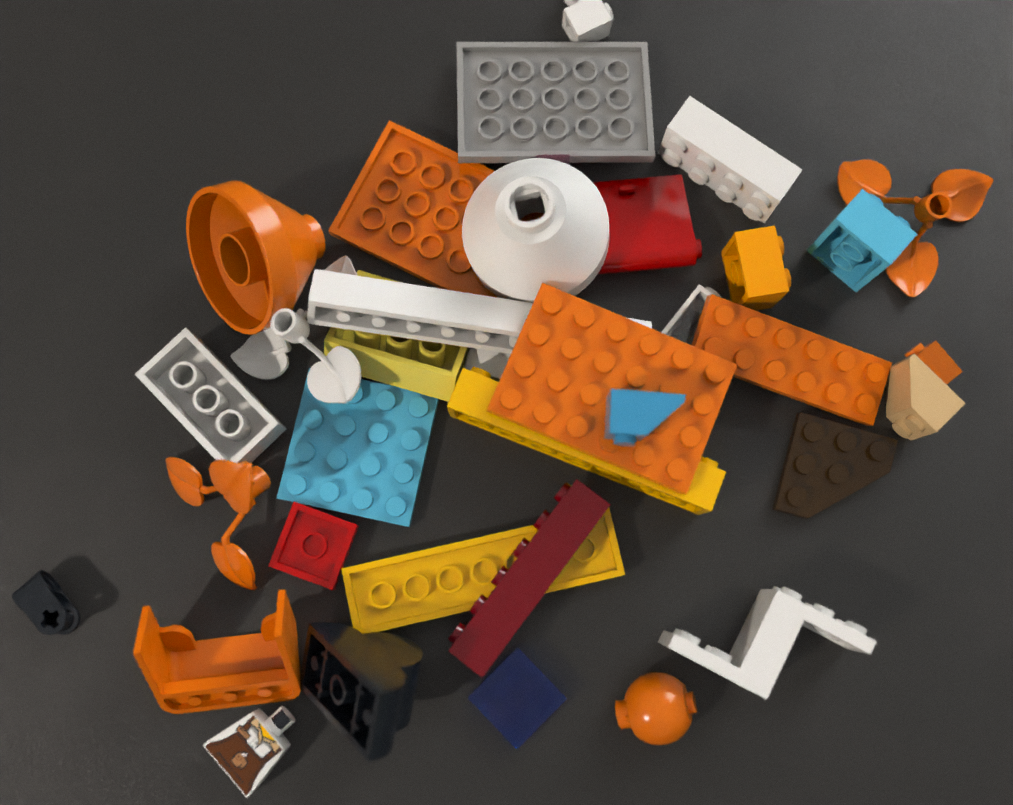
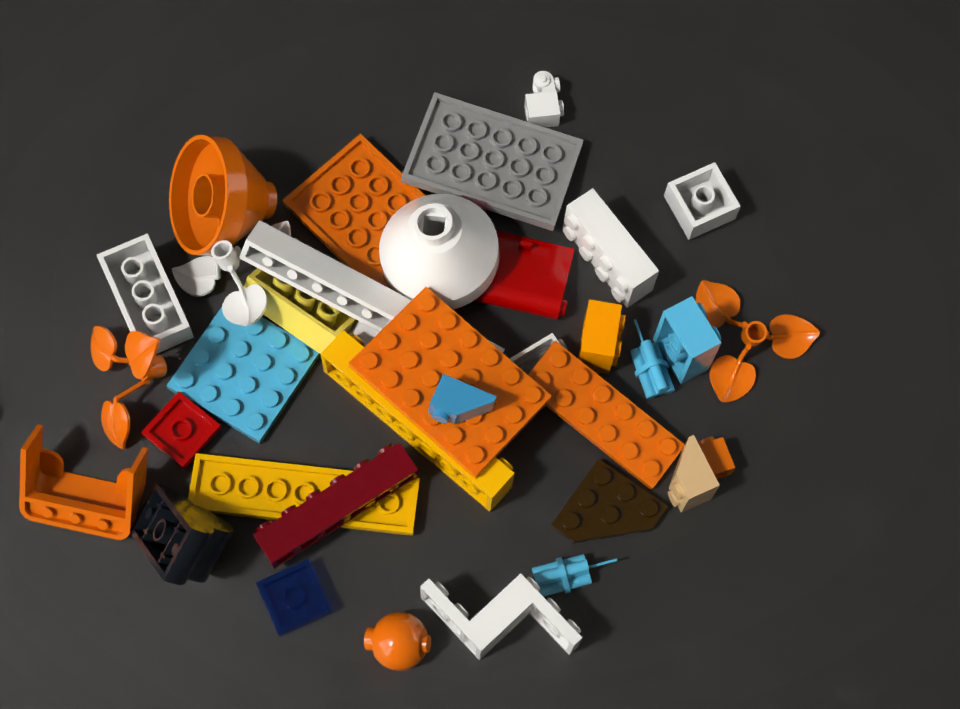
camera: 15 degrees right, 10 degrees down
(252, 747) = (77, 562): torso -> none
(809, 68) = (701, 201): none -> white brick
(811, 560) = (564, 574): none -> medium azure piece
(820, 286) = (651, 368): none -> medium azure piece

